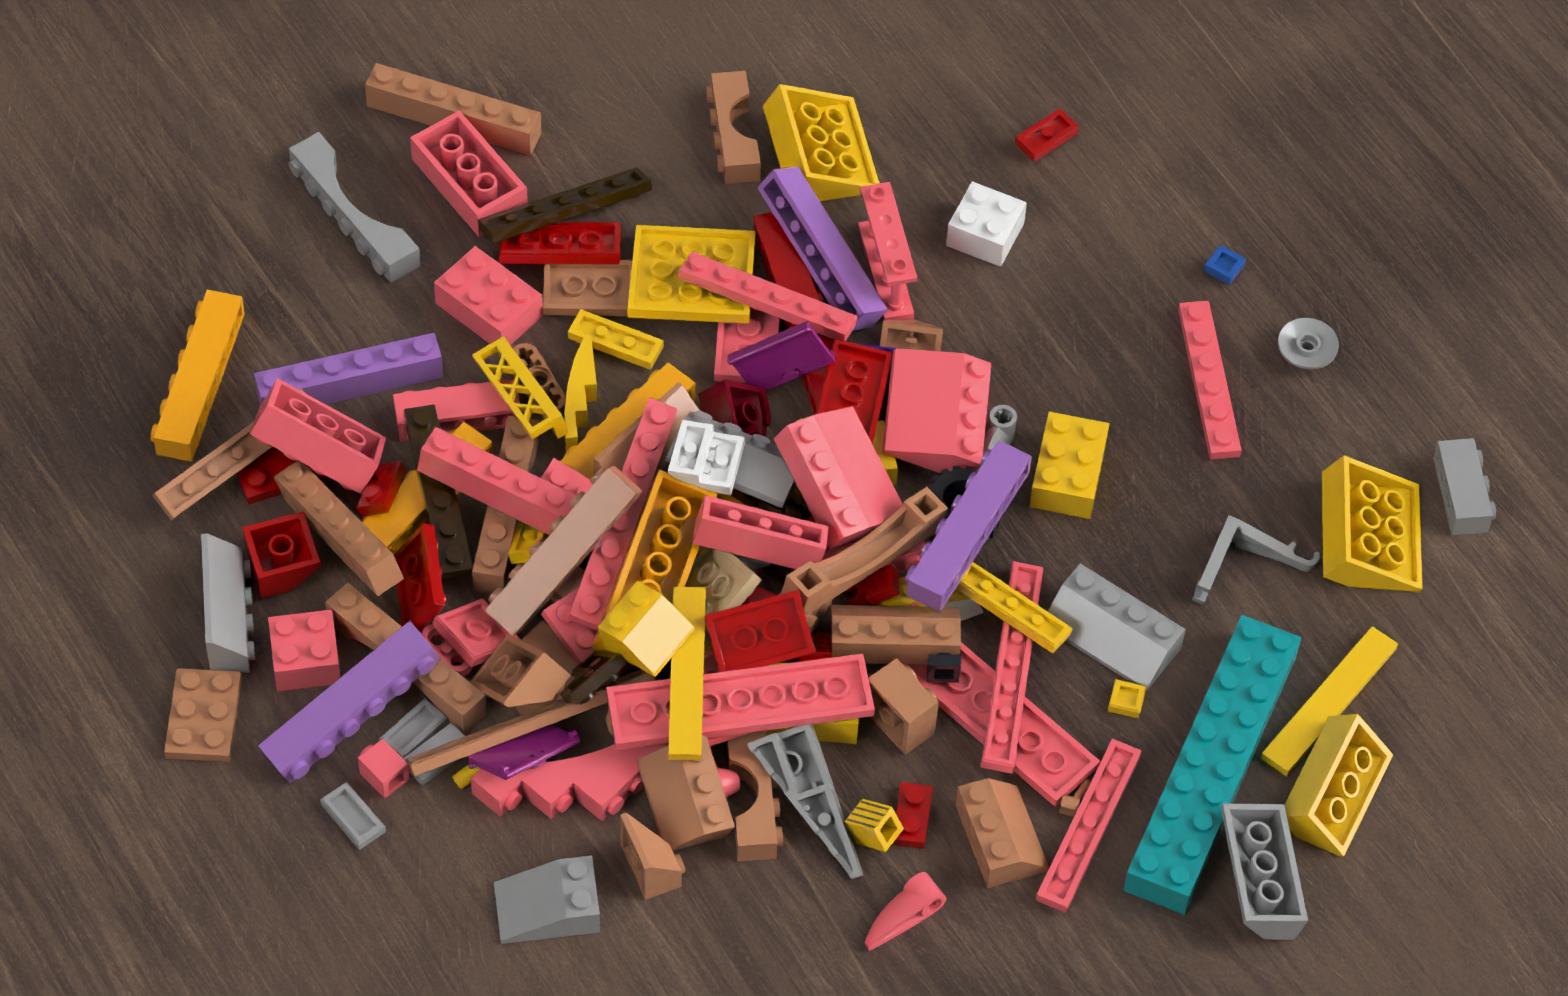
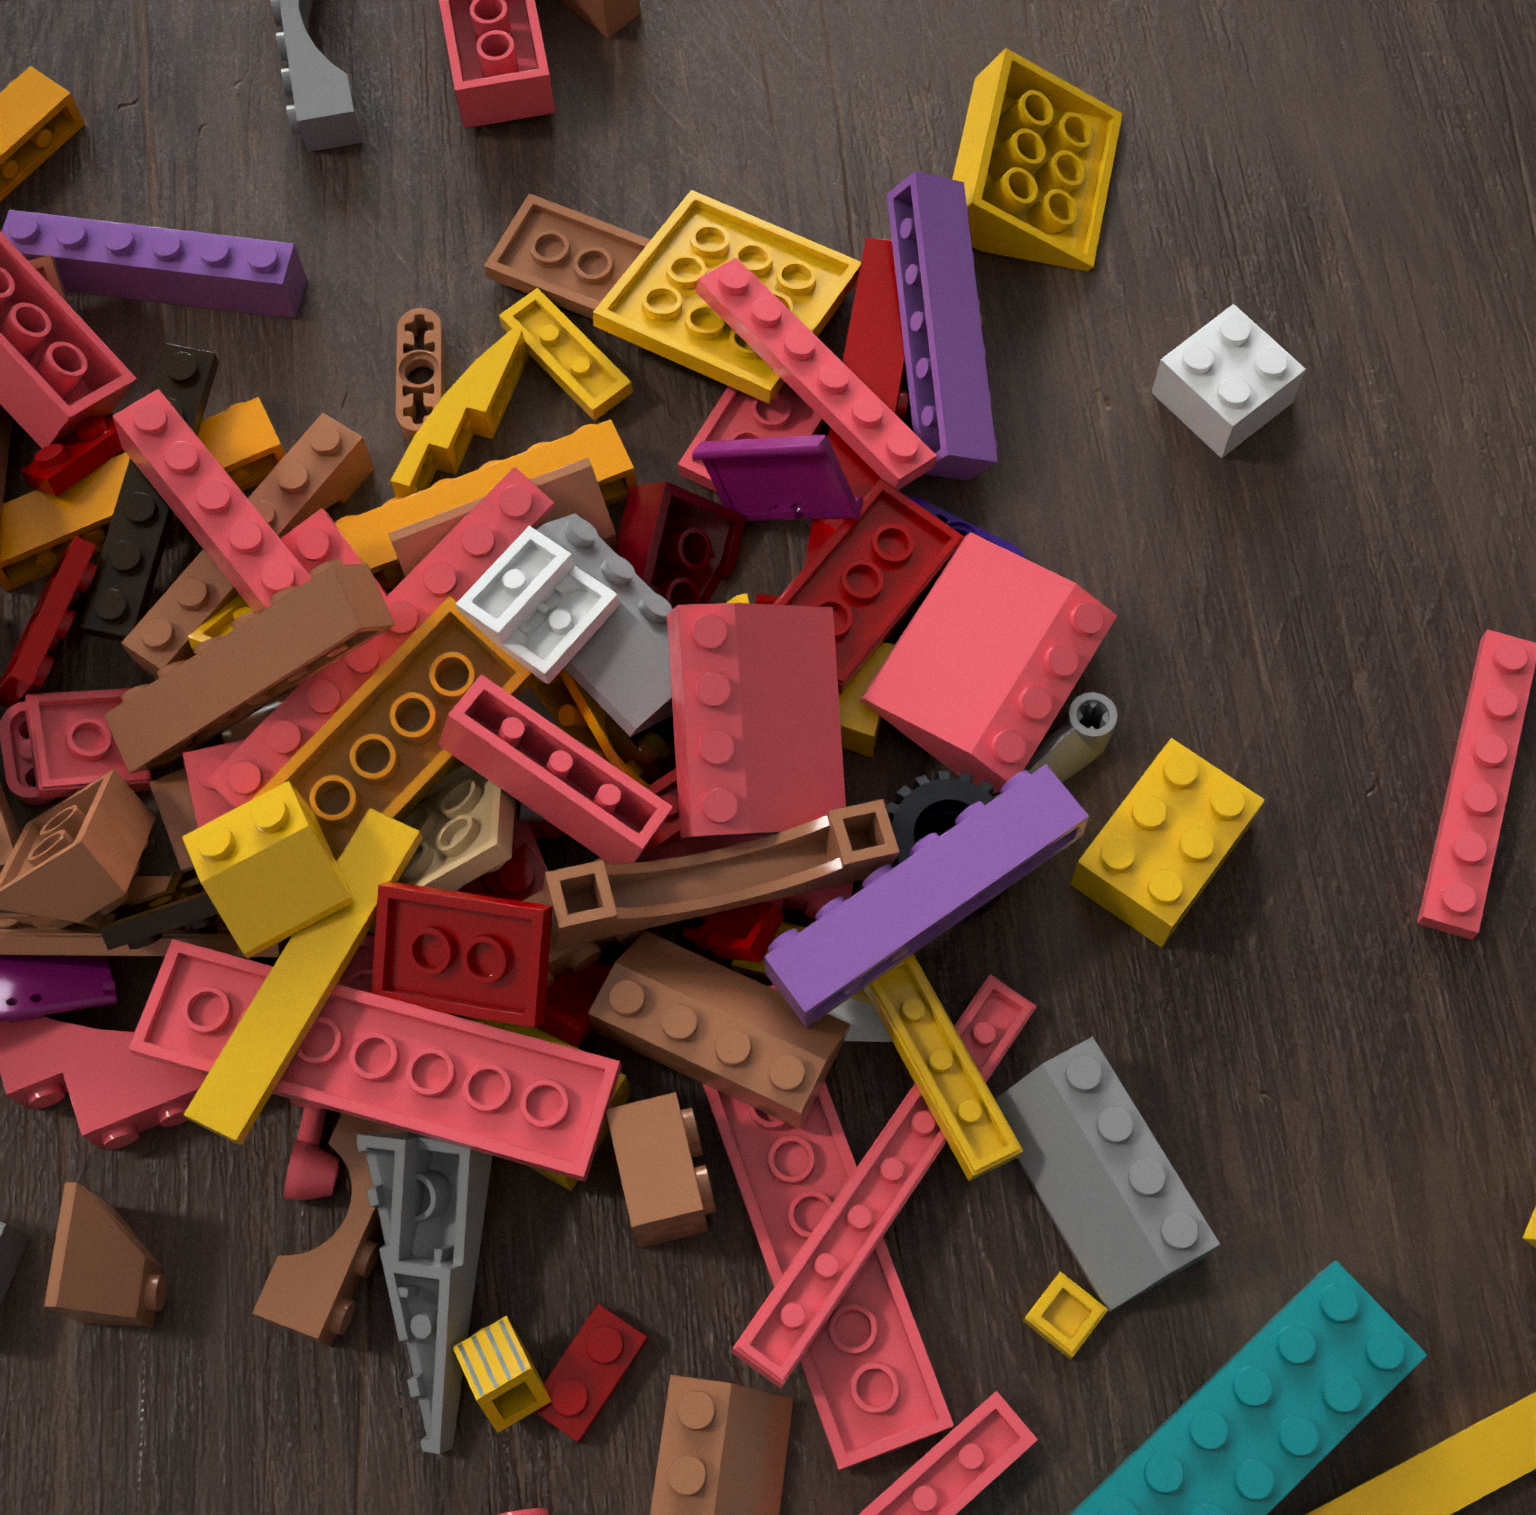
camera: 30 degrees right, 10 degrees up
(470, 403) = (286, 374): coral brick -> none
(488, 298) = (414, 223): coral brick -> none
(523, 383) = (379, 380): yellow fence -> none
(564, 205) = (600, 123): dark brown plate -> none
(565, 244) = (566, 178): red tile -> none
(686, 798) = (219, 1196): nougat slope -> none
(738, 154) = (930, 55): nougat arch -> none
(887, 251) = (1039, 369): coral fence -> none
(911, 335) = (1019, 518): nougat slope -> none
(943, 668) = (764, 1130): black plate -> none
(1047, 135) = (1396, 274): red plate -> none
(1070, 804) = (865, 1483): nougat hand -> none
(1251, 540) = (1422, 1108): light grey hinge -> none

